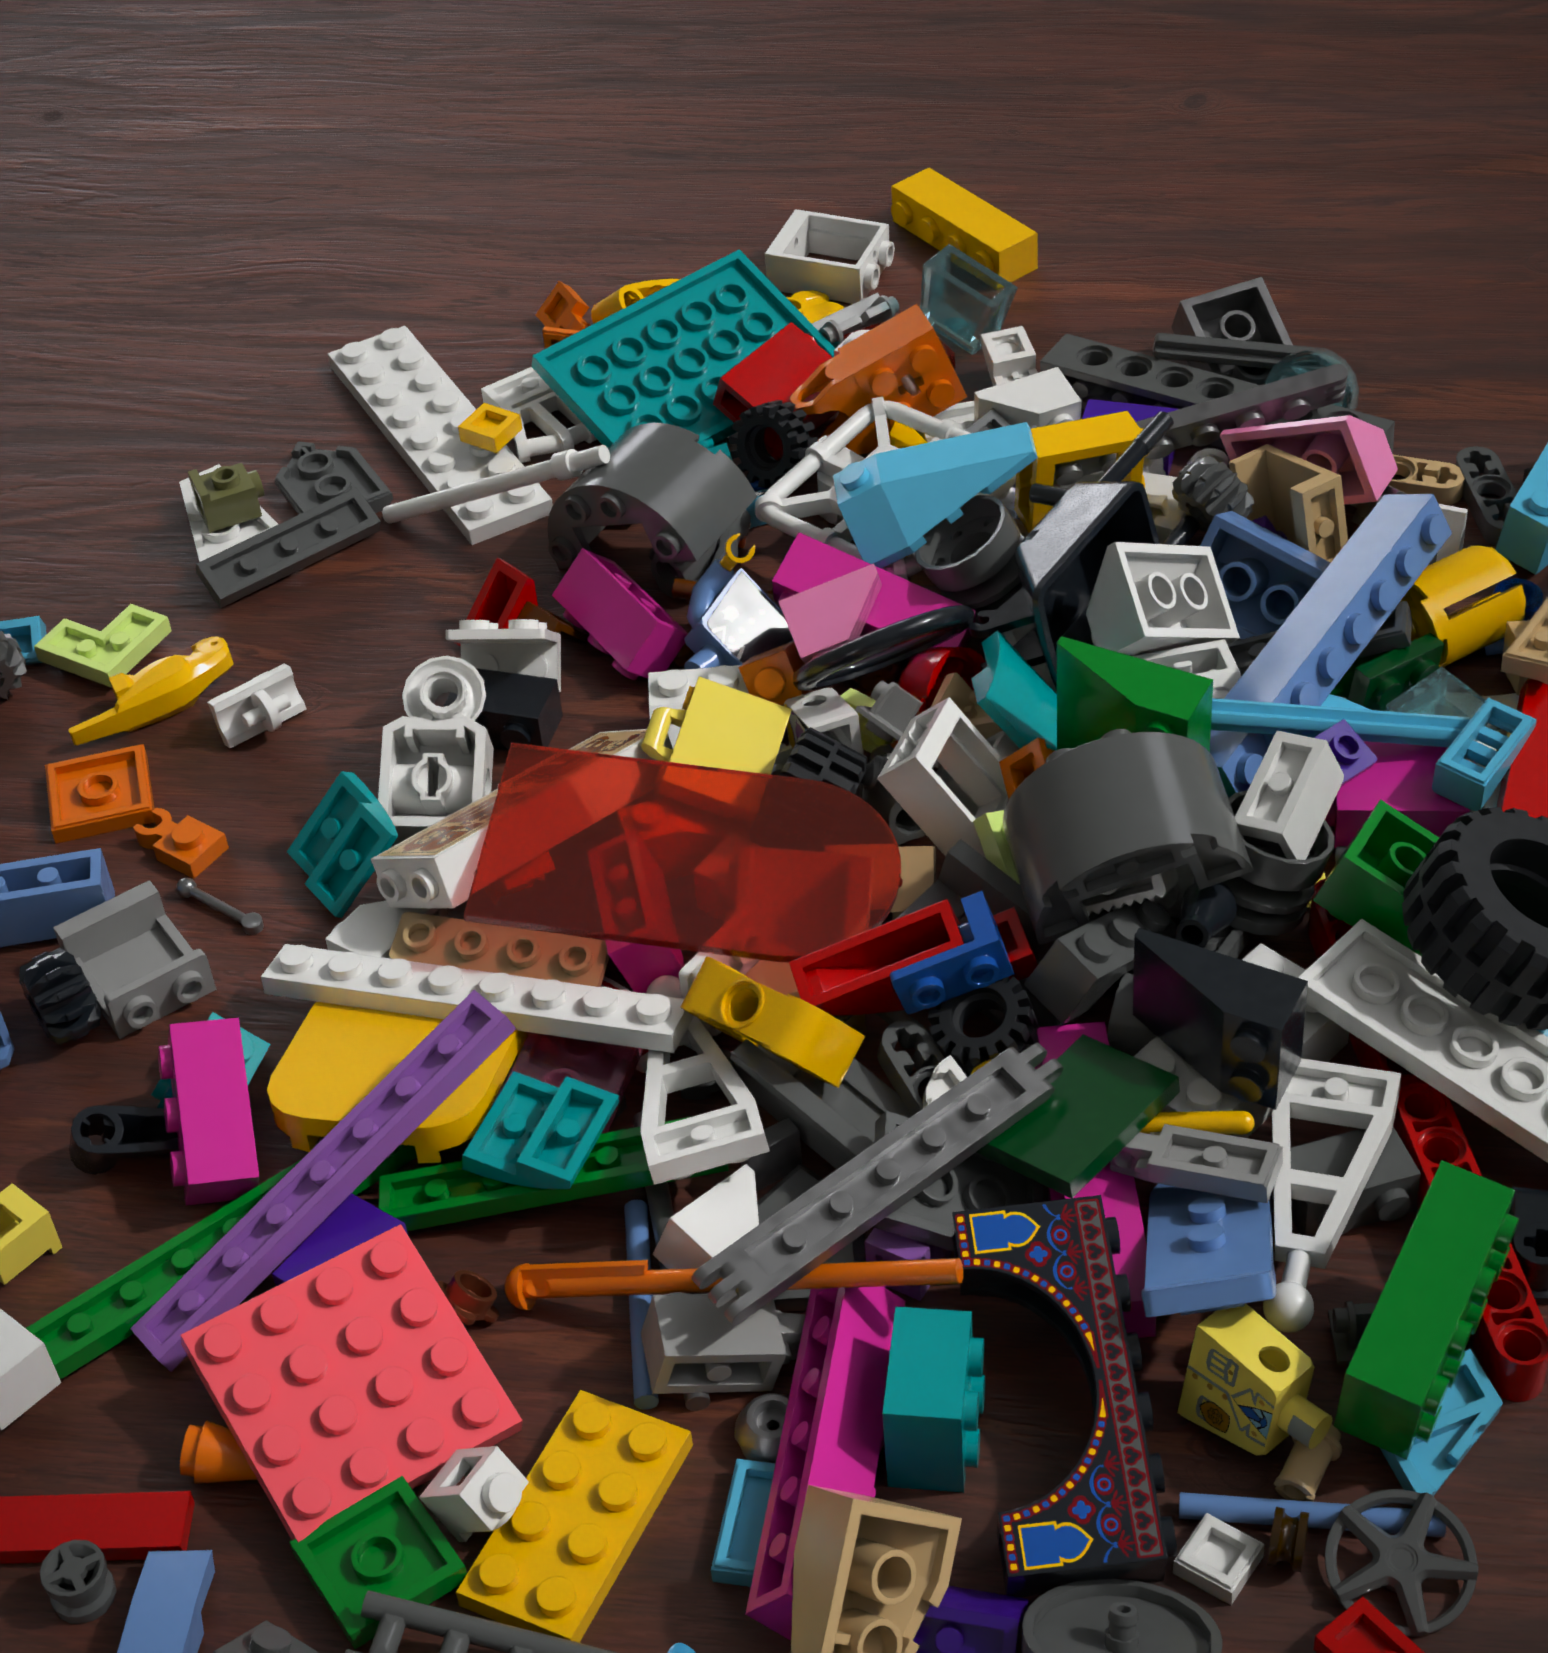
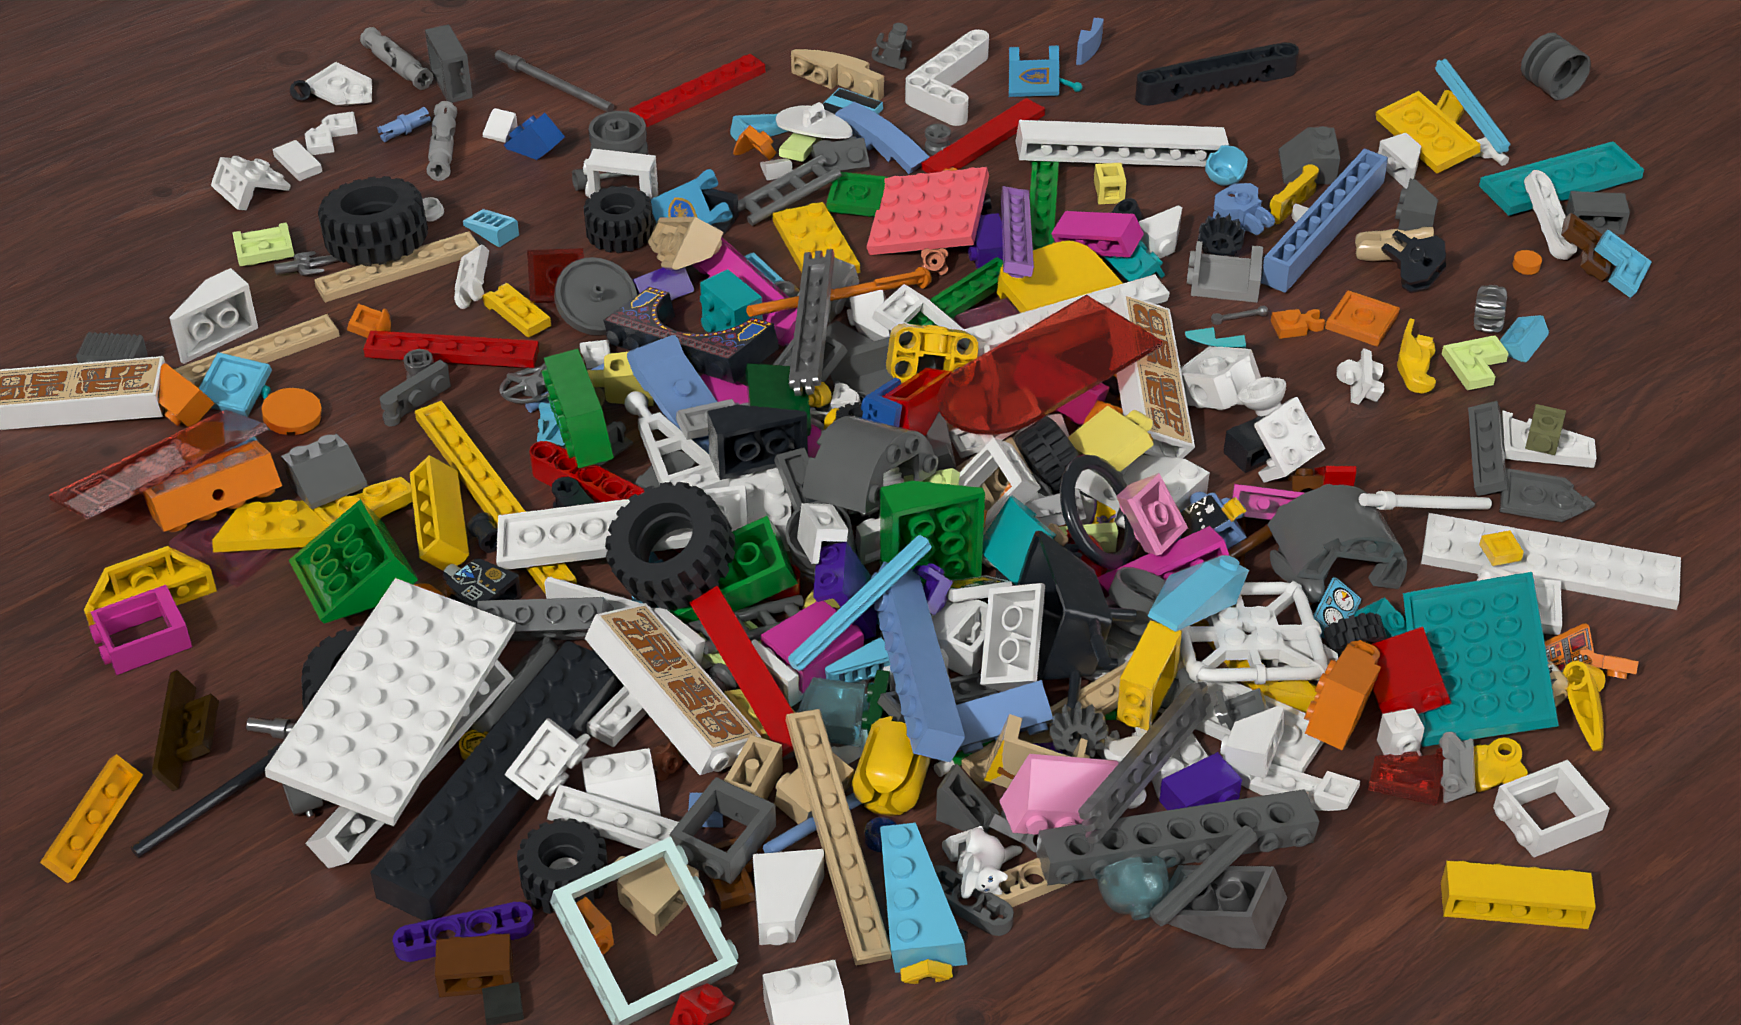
camera: 130 degrees right, 0 degrees up
(95, 1075) = (1162, 231): none -> white slope
(484, 1497) = (846, 212): white brick -> none
(539, 1132) = (974, 294): teal slope -> none
(963, 298) = (1409, 805): clear light blue torso -> none
(1463, 475) = (983, 863): none -> white animal
(1468, 782) = (773, 640): medium azure slope -> none

